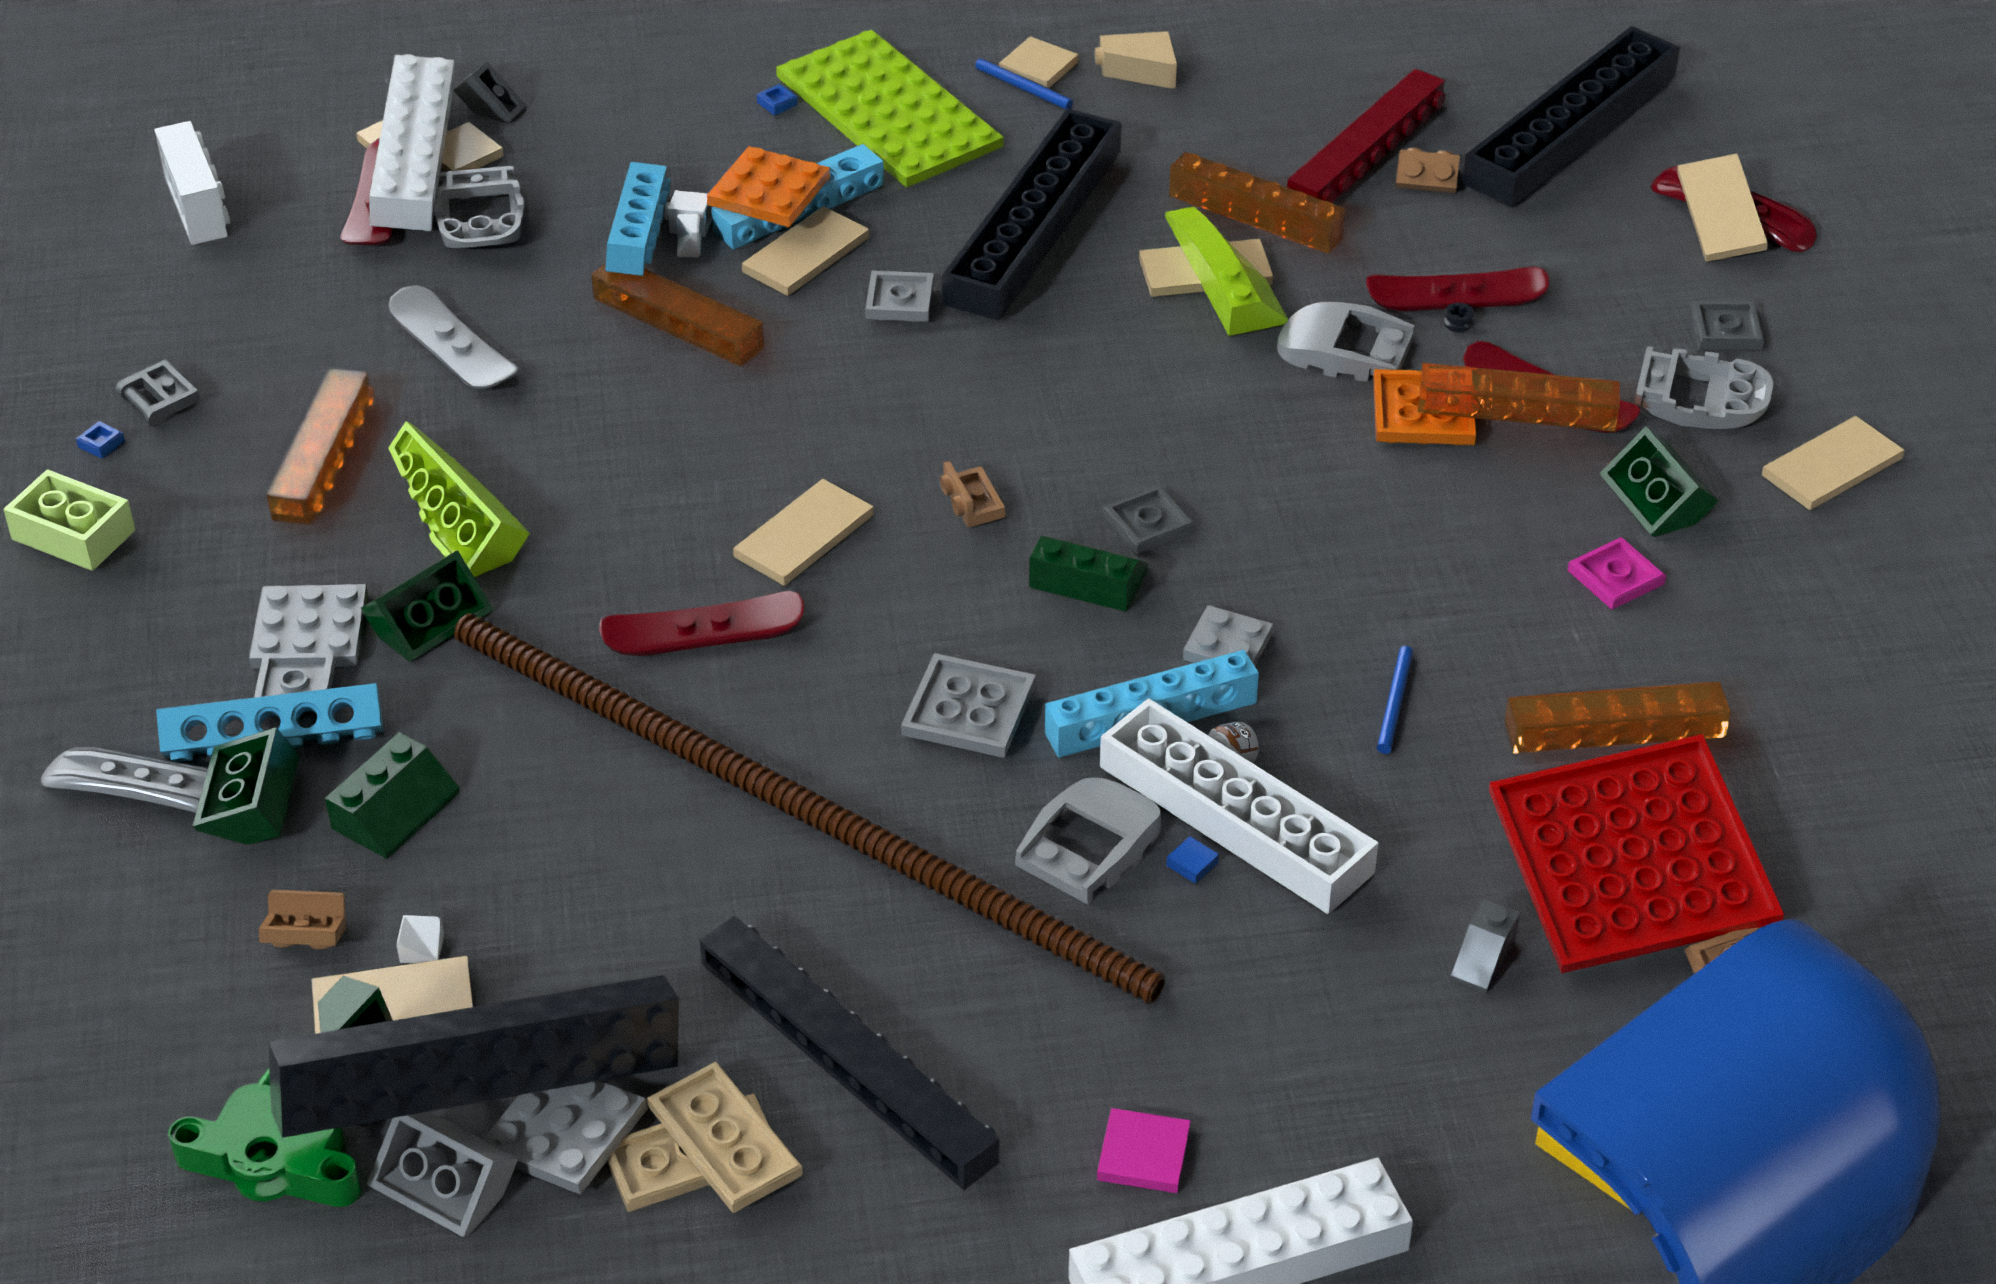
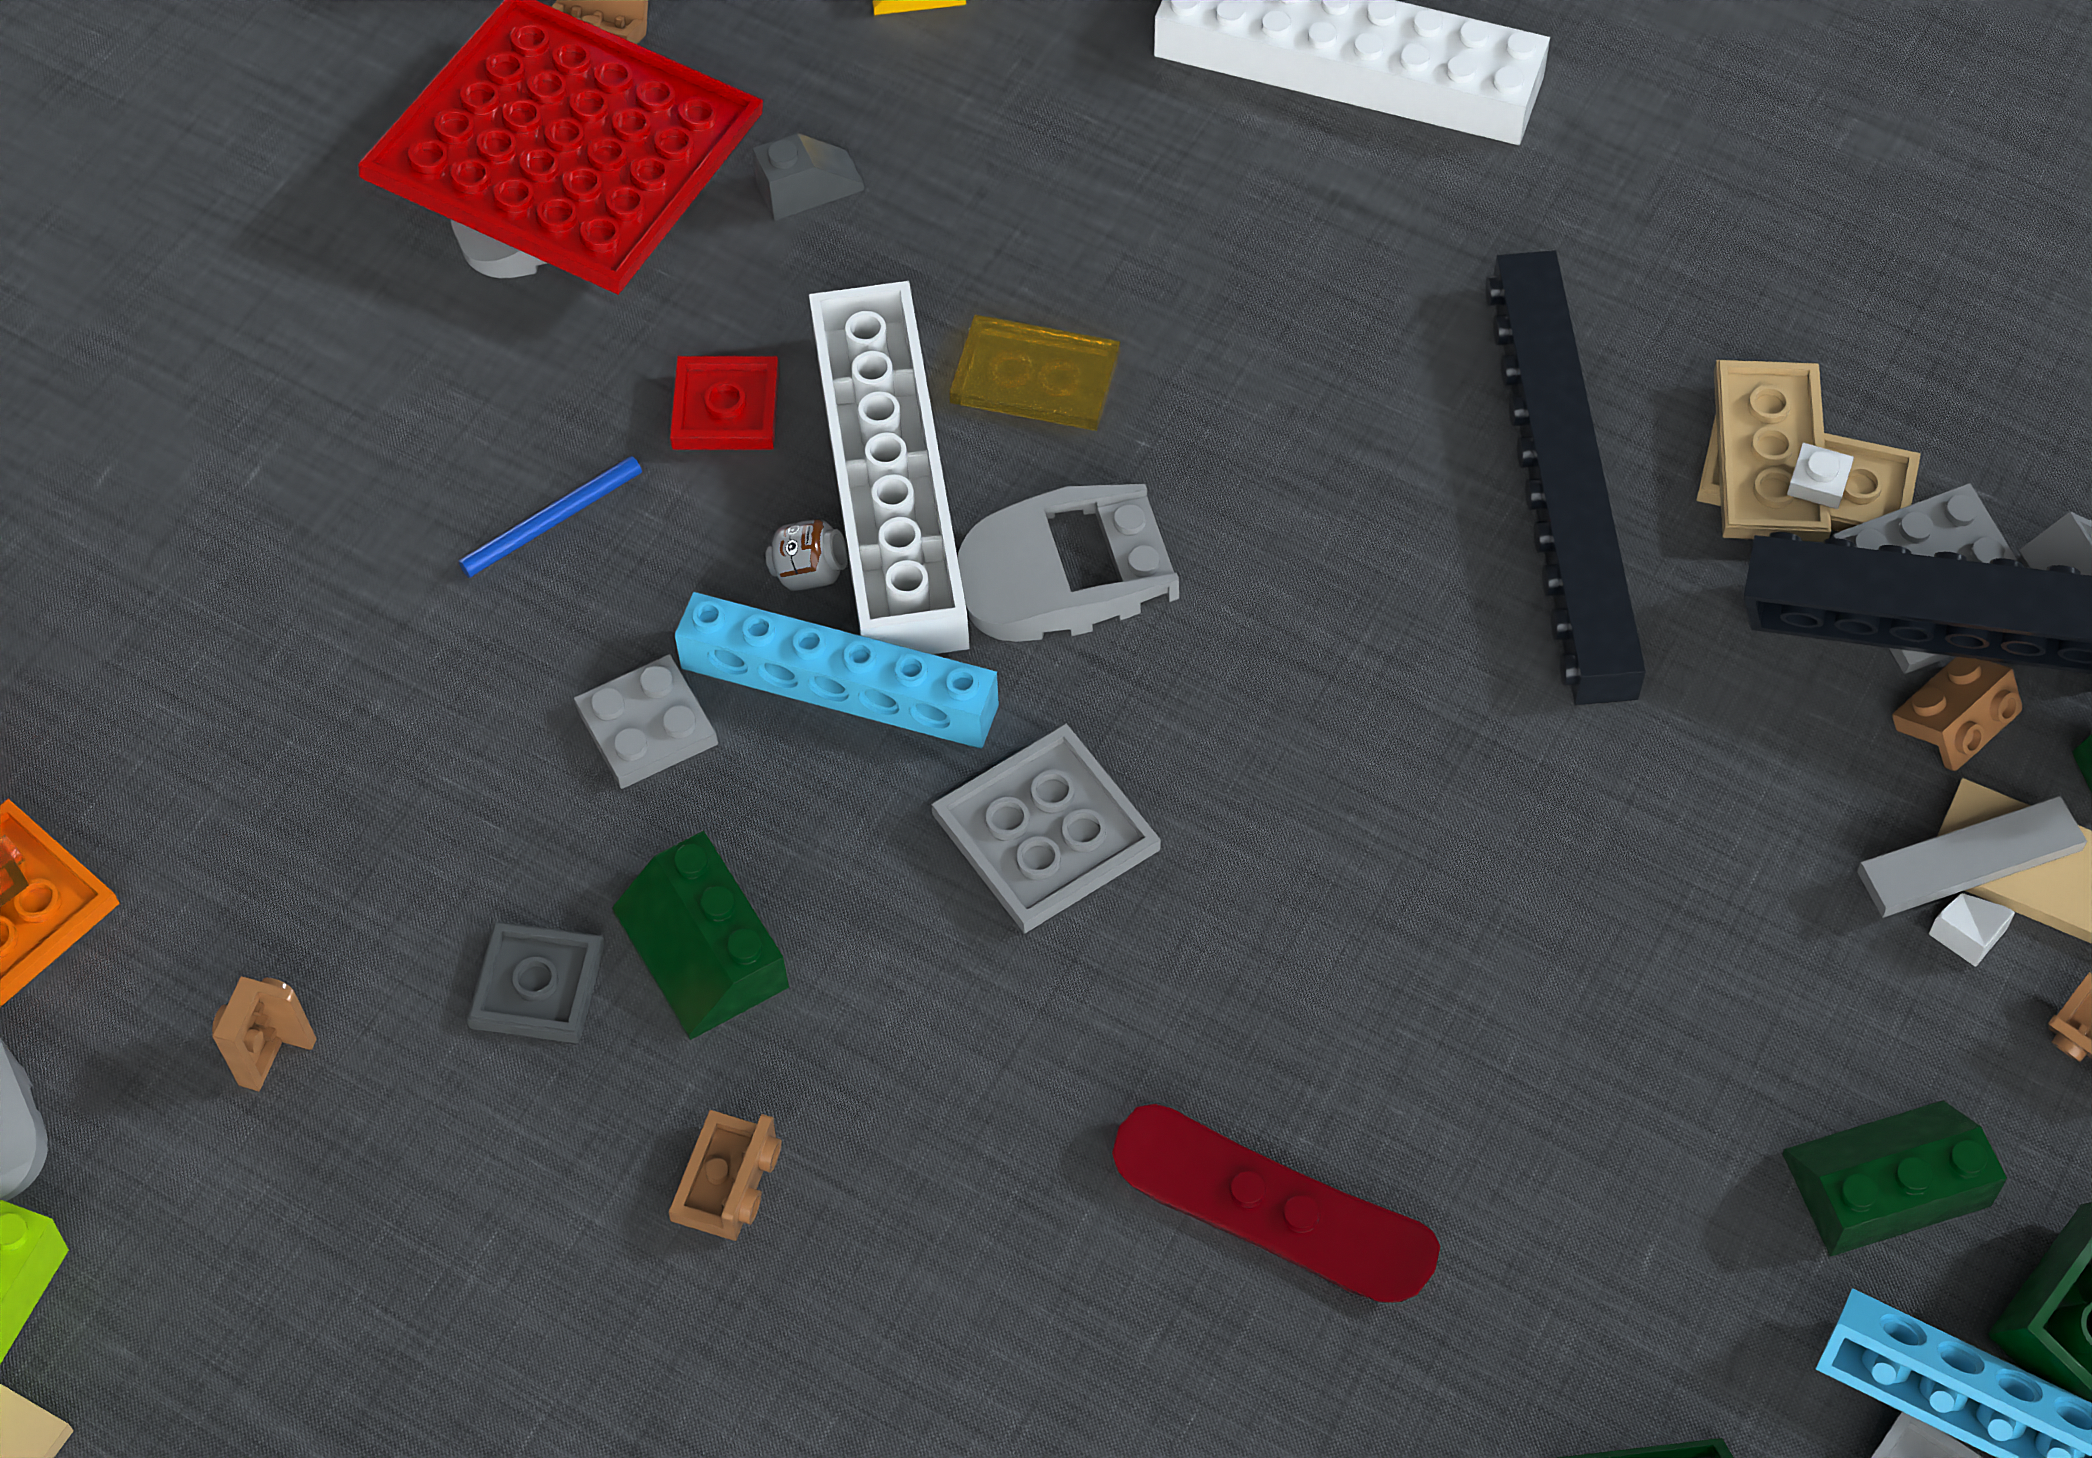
camera: 140 degrees left, 15 degrees up
(442, 962) = (1971, 856): none -> light grey tile
(676, 1116) = (1820, 475): none -> white plate
(803, 532) = (1000, 1291): tan tile -> none
(814, 810) = (1401, 896): reddish brown piece -> none
(1143, 1150) = (1343, 202): dark pink tile -> none
(1192, 859) = (986, 466): blue tile -> none
(1222, 927) = (1035, 372): none -> clear yellow tile
(1237, 414) = (256, 1025): none -> medium nougat bracket
(1372, 798) = (725, 403): none -> red plate
(1616, 573) = (108, 512): dark pink tile -> none
(1616, 717) = (364, 322): clear orange brick -> none

